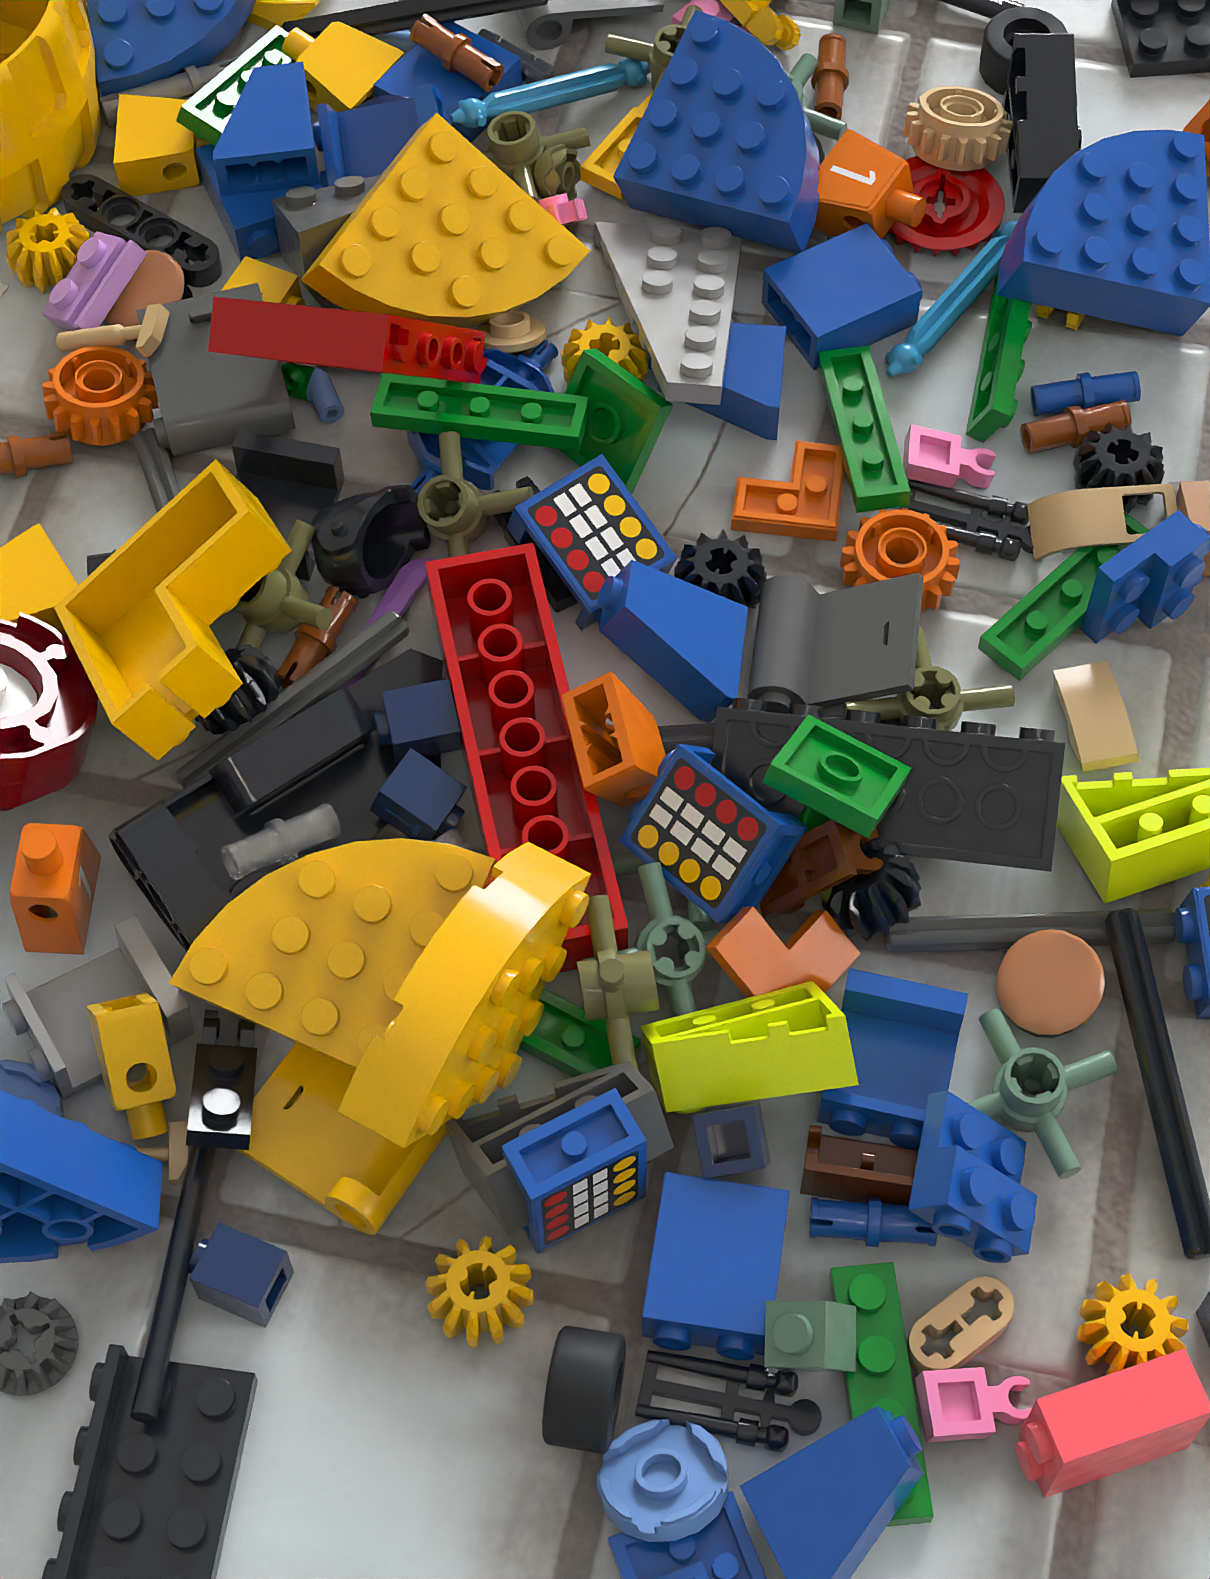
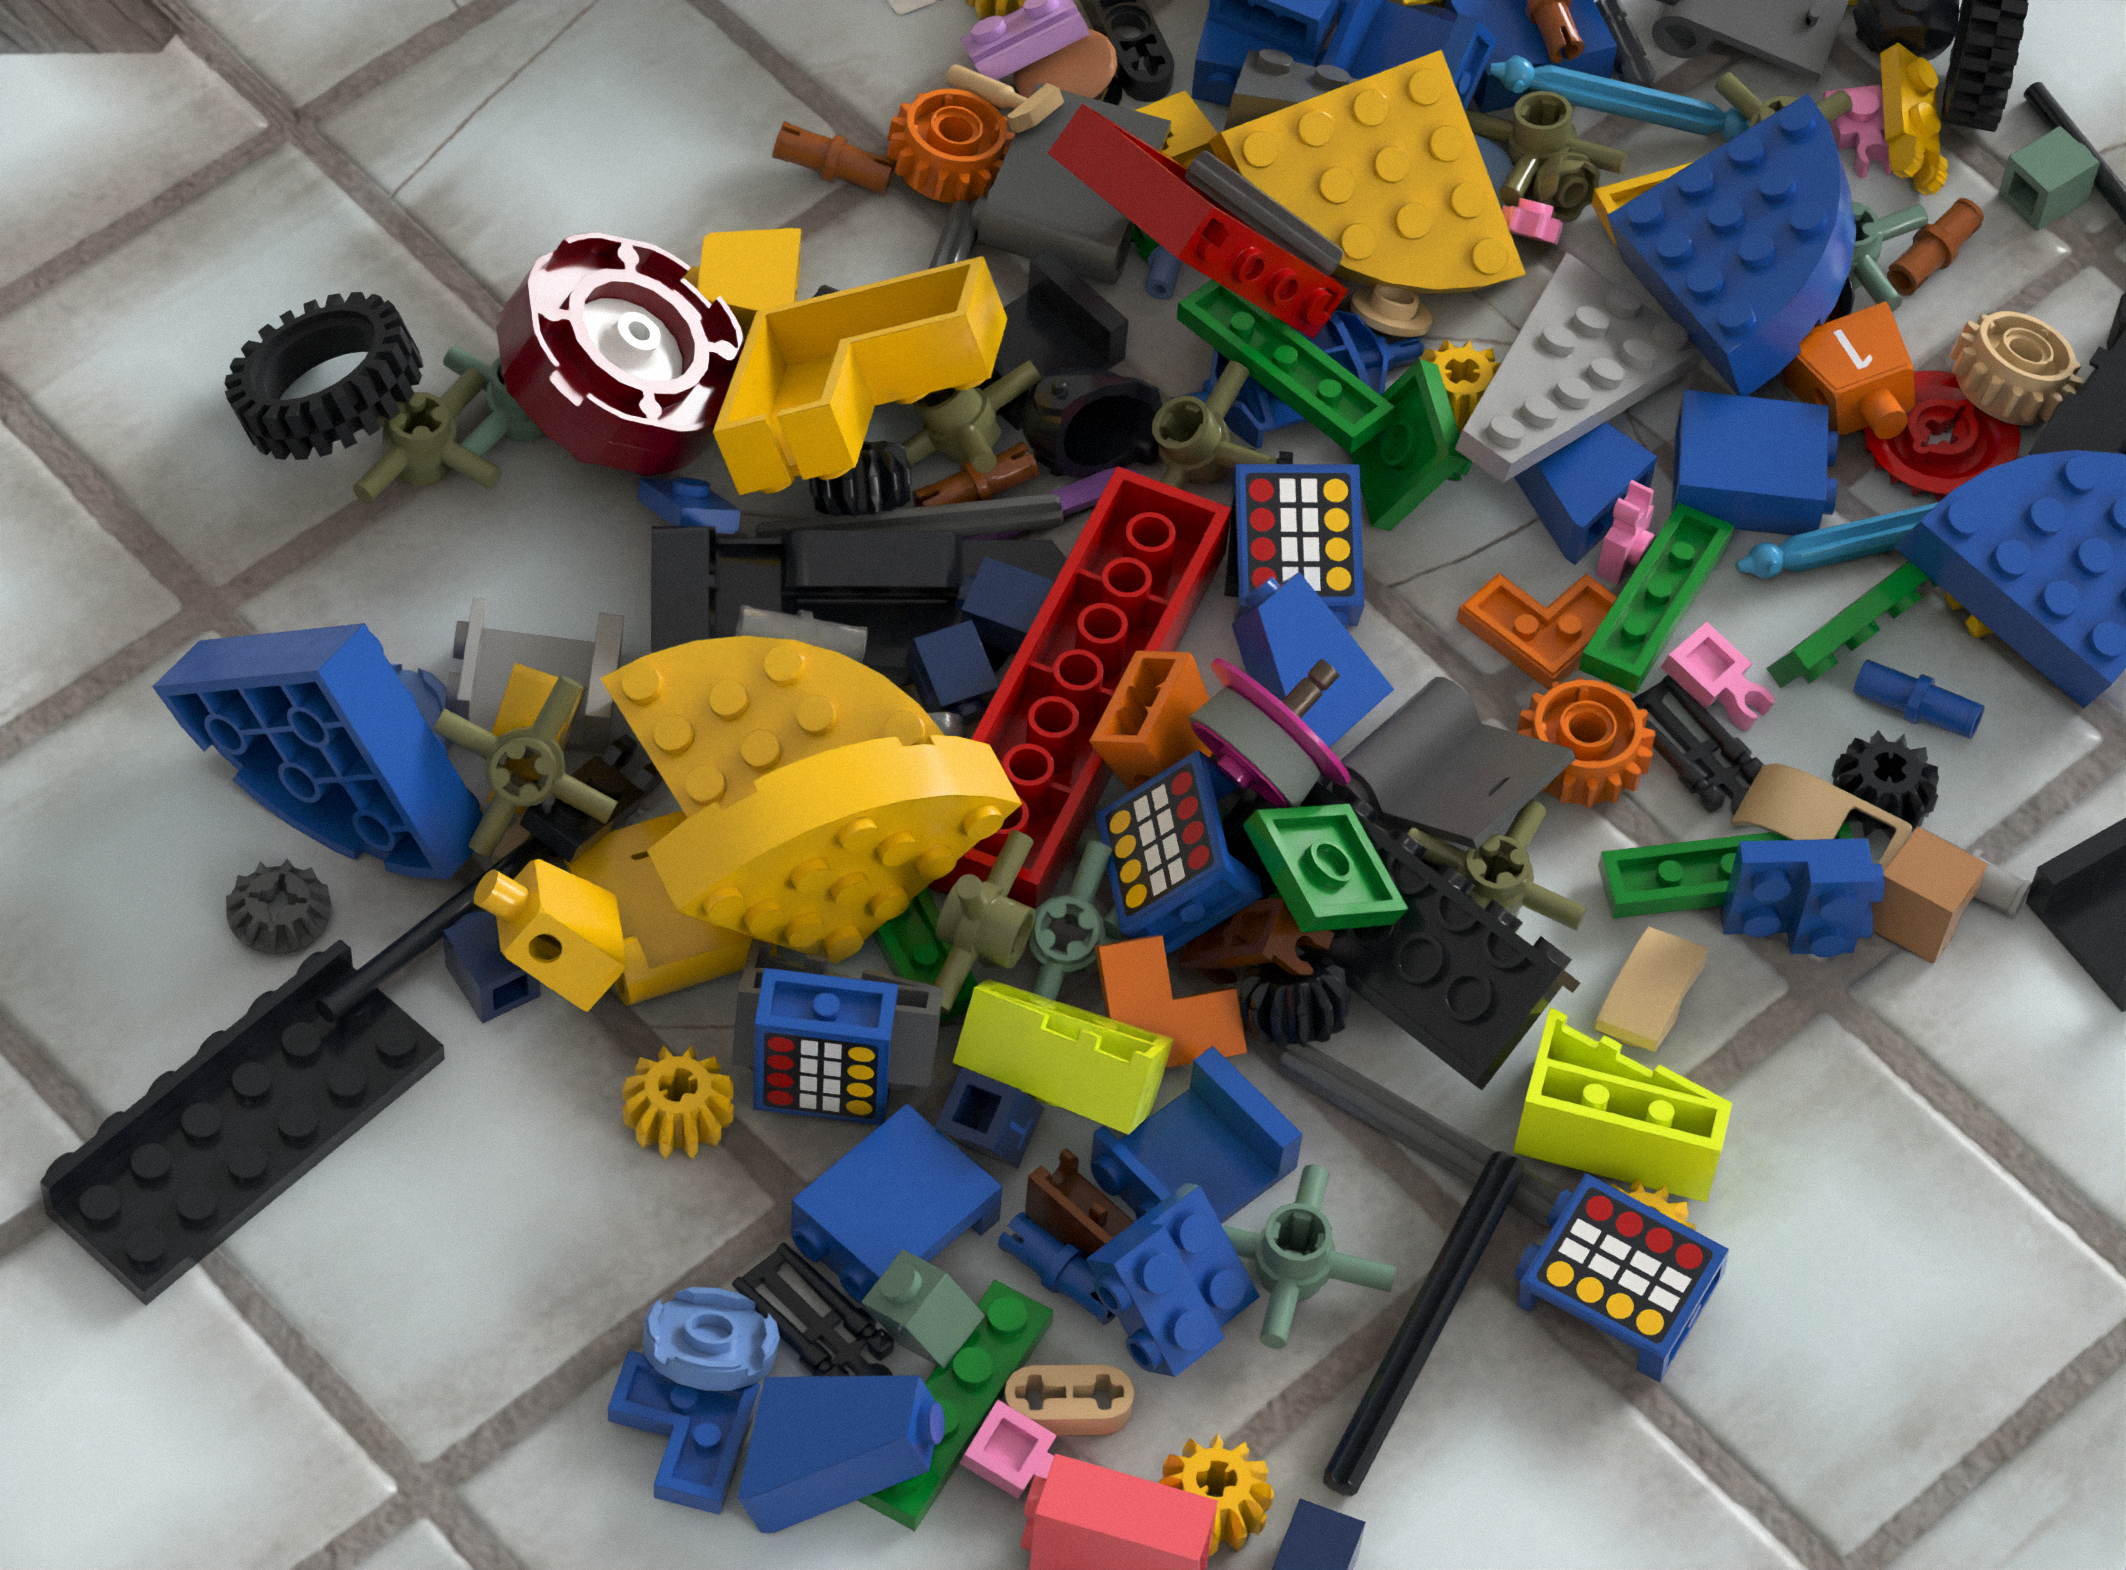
camera: 30 degrees right, 5 degrees down
(55, 870) = (575, 552): orange torso -> none
(116, 792) = (688, 503): none -> blue plate
(145, 1083) = (514, 790): none -> olive bar
(288, 1216) = (557, 929): none -> yellow torso
(407, 306) = (1263, 213): none -> dark grey axle
(583, 1389) = (698, 1223): black tyre -> none
(720, 702) = (1264, 739): none -> piece
(724, 568) = (1404, 645): black gear -> none
(808, 395) = (1629, 534): none -> bright pink plate
(1050, 983) = (1395, 1182): nougat piece -> none
(1073, 426) = (1865, 718): dark orange pin -> none

